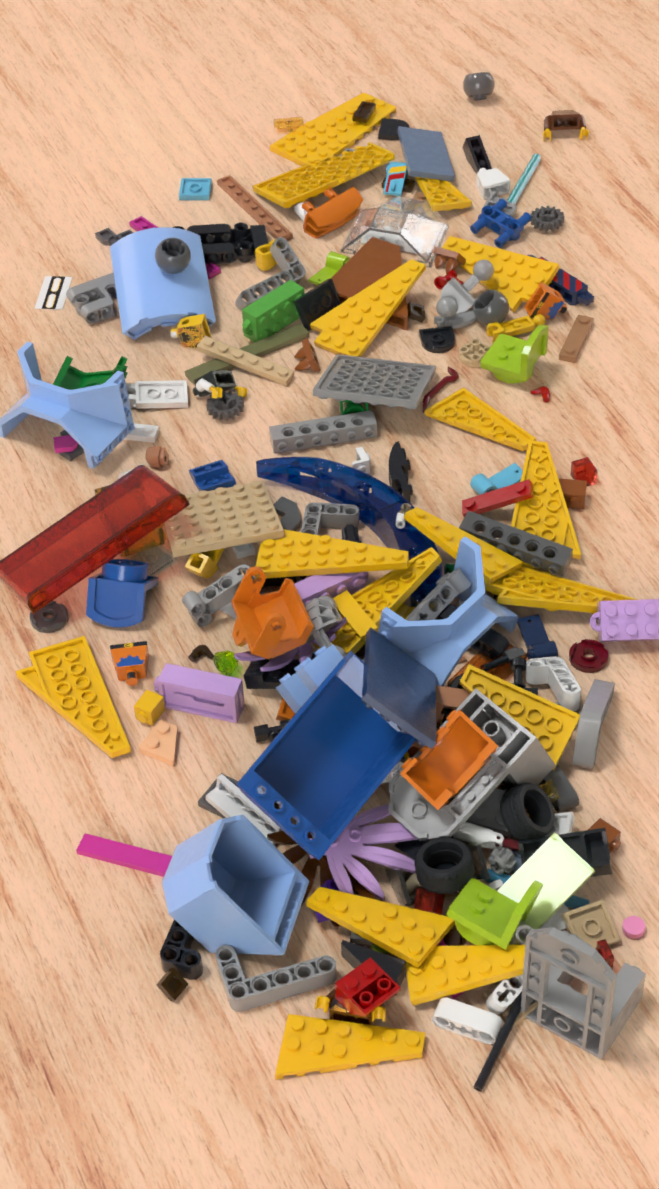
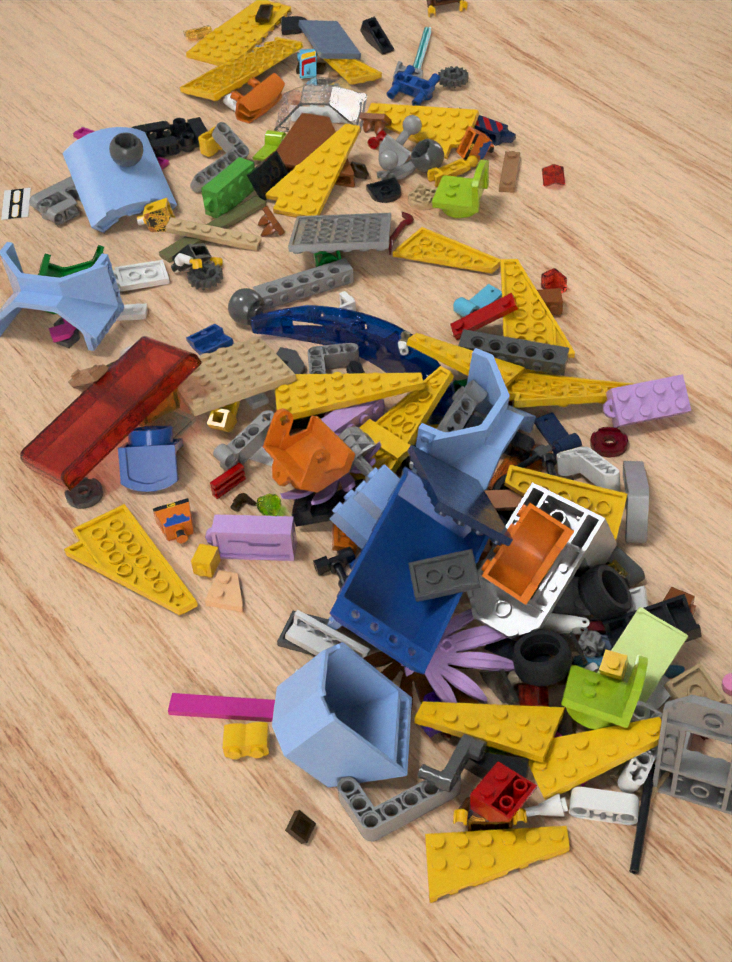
camera: 10 degrees left, 0 degrees up
(78, 495) = (87, 375): none -> medium nougat plate
(108, 237) = (56, 149): dark grey tile -> none
(142, 892) = (246, 740): none -> yellow brick
(157, 456) = (152, 329): nougat piece -> none
(180, 953) = (300, 793): black beam -> none
(191, 629) = (227, 480): none -> red tile
(195, 189) = (127, 97): medium azure tile -> none
(254, 208) = (183, 104): nougat tile -> none
(256, 445) = (244, 305): none -> dark grey wheel
(320, 965) = (446, 779): none -> dark grey beam
(364, 766) = (444, 575): none -> dark grey tile
(399, 471) = (384, 304): black slope -> none
(417, 1012) = (551, 807): none -> white cone
(490, 181) = (393, 53): white torso -> none
(513, 885) = (614, 665): none -> yellow brick
(544, 391) = (494, 219): red animal -> none
(620, 350) = (553, 175): none -> clear red panel

